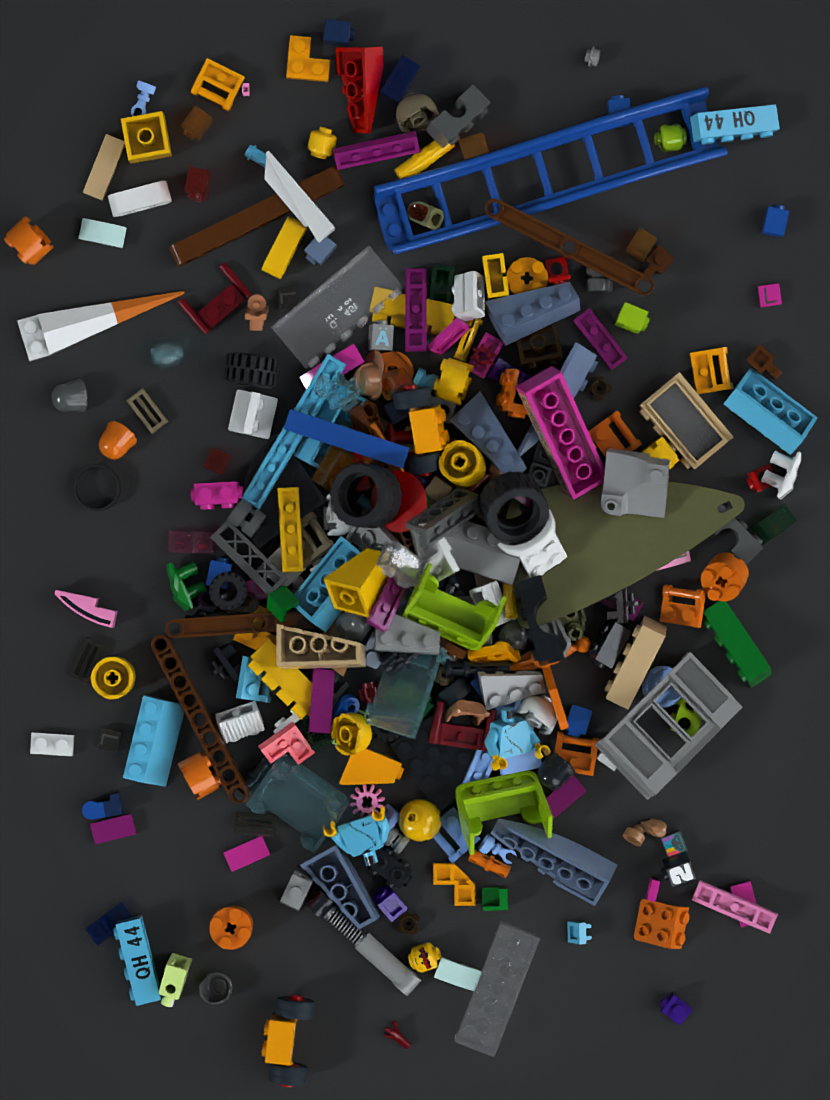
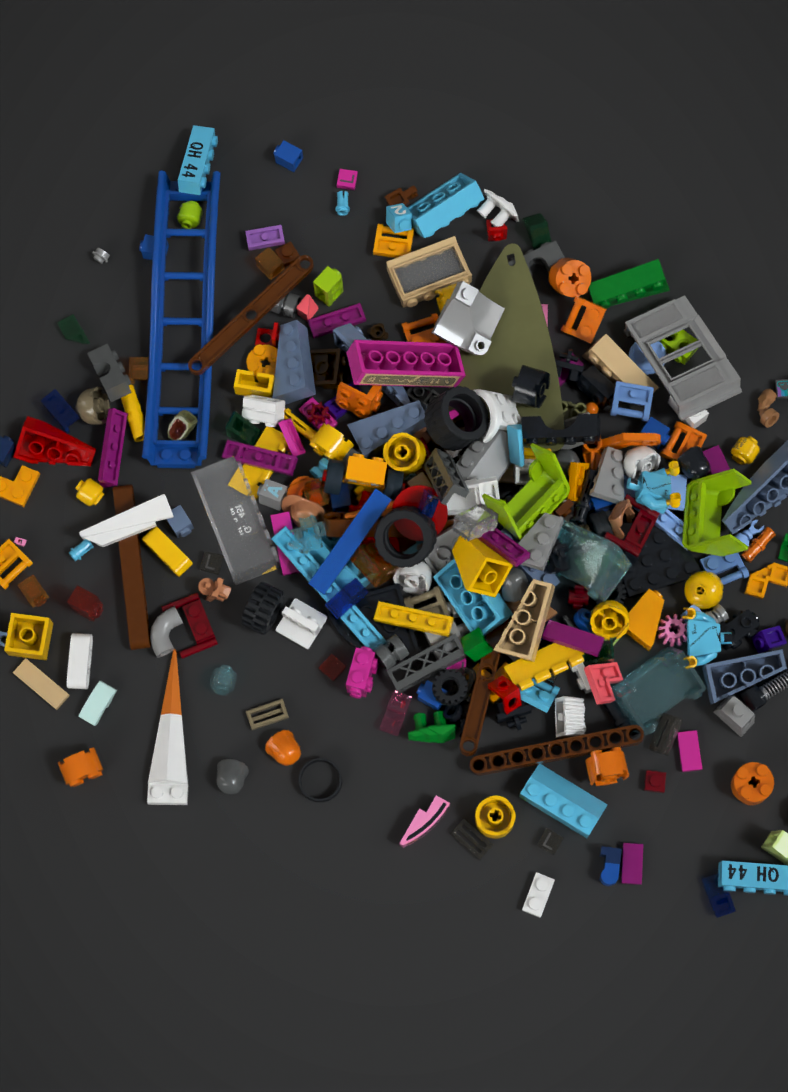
camera: 65 degrees left, 15 degrees down
(198, 271) = (160, 632): none -> light grey cylinder
(204, 827) = (655, 781): none -> dark red plate
(241, 649) = (506, 690): none -> red bracket
(287, 454) = (346, 598): none -> clear blue slope
(404, 509) = (428, 503): none -> clear blue slope
(498, 57) = (72, 330): none -> clear green slope
(507, 579) = (515, 444): none -> medium azure slope
(577, 574) = (530, 386): none -> black brick
(589, 821) = (745, 450): none -> yellow head
(603, 303) = (307, 308): none -> coral slope
(607, 685) = (632, 394): none -> medium blue plate
(670, 229) = (265, 237): none -> medium lavender plate
(737, 368) = (398, 218): none -> medium azure brick
(738, 300) = (342, 203): none -> medium azure pin

